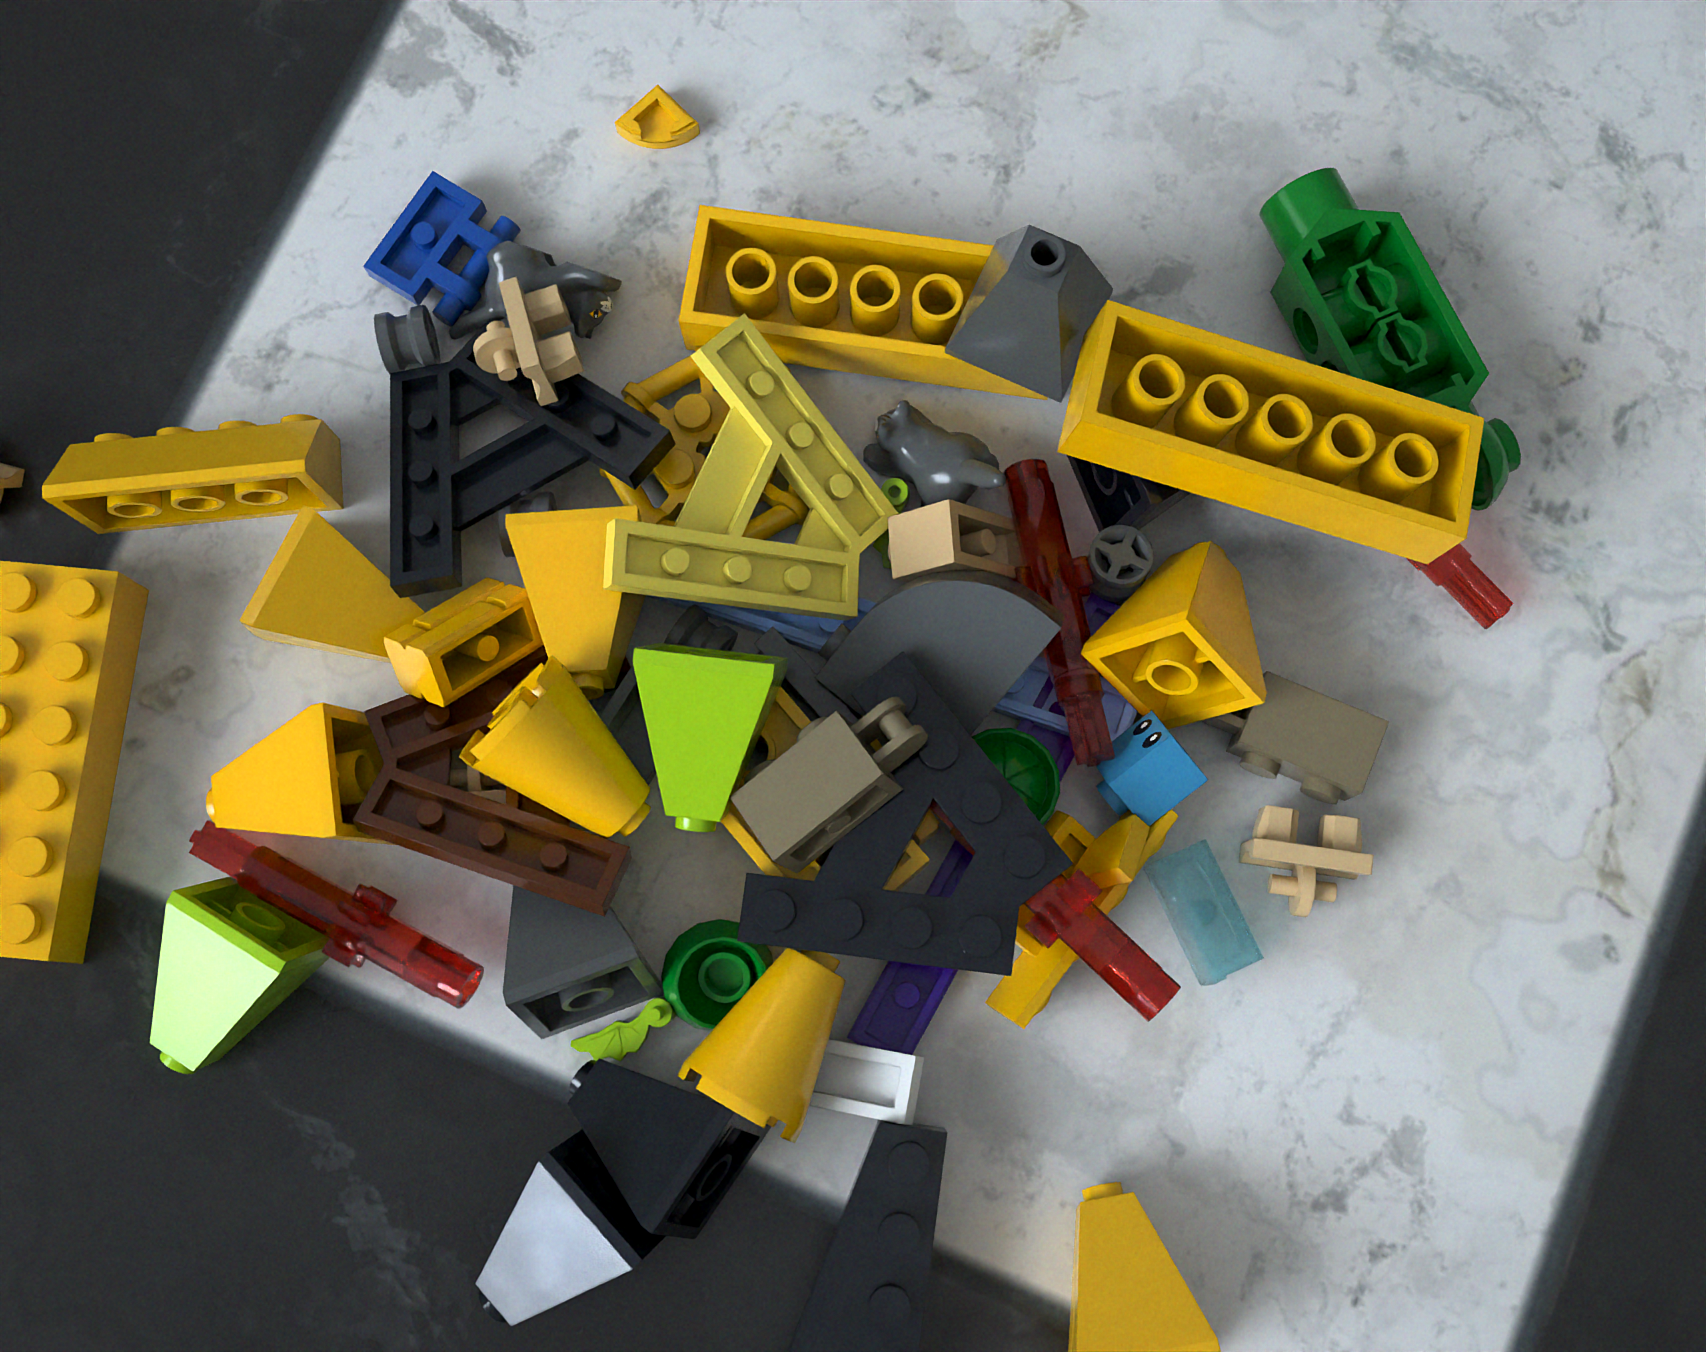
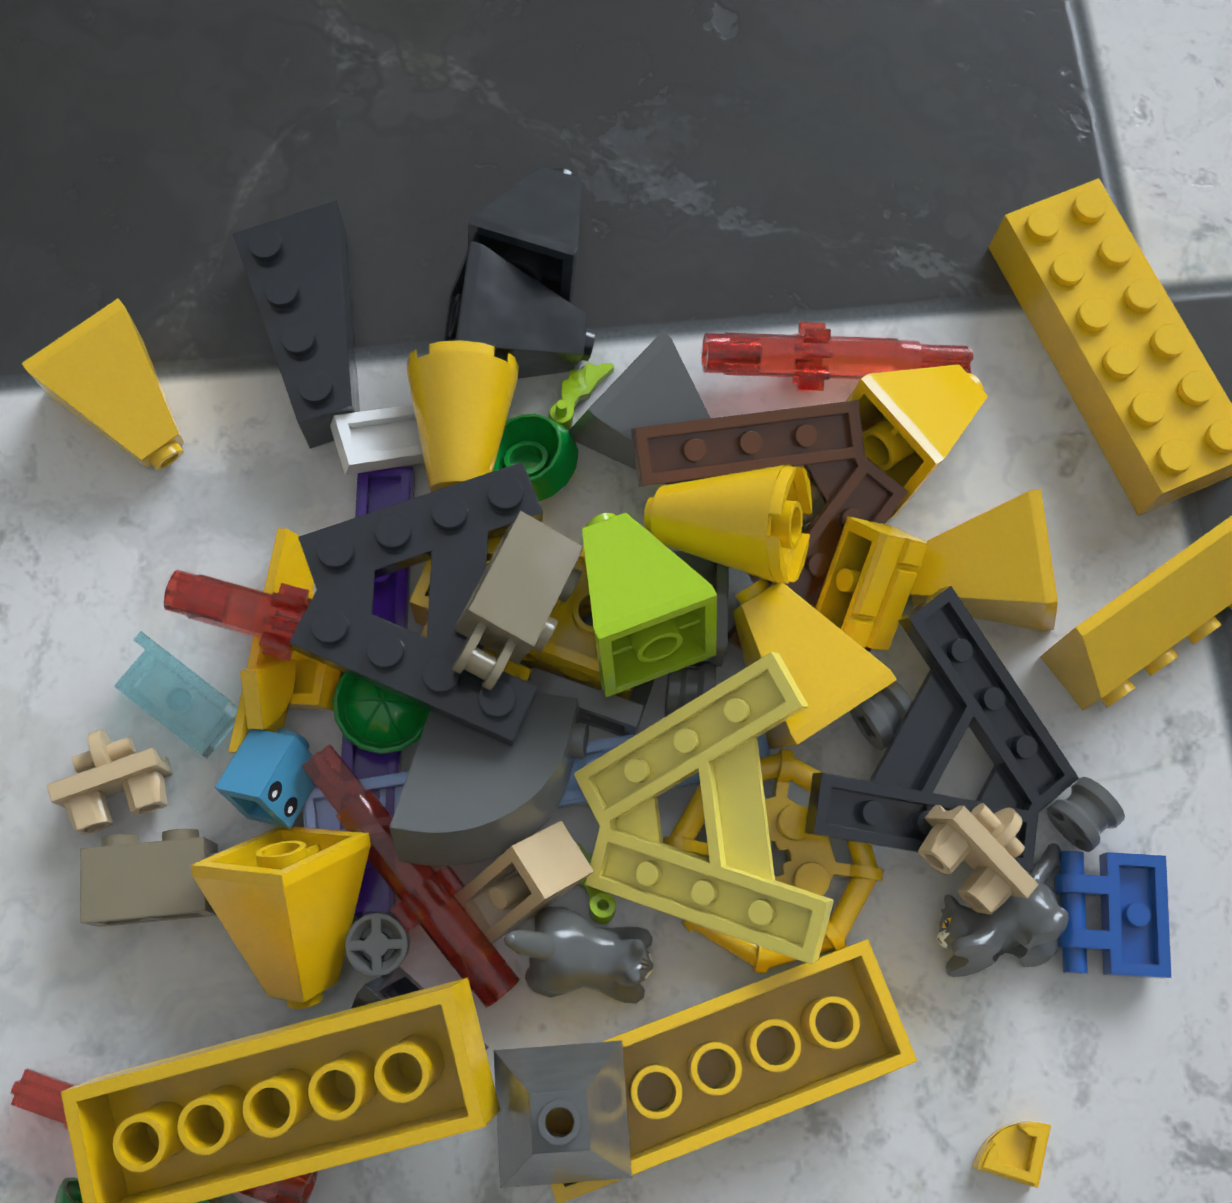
camera: 145 degrees right, 5 degrees down
(224, 970) = (886, 280): slope -> none

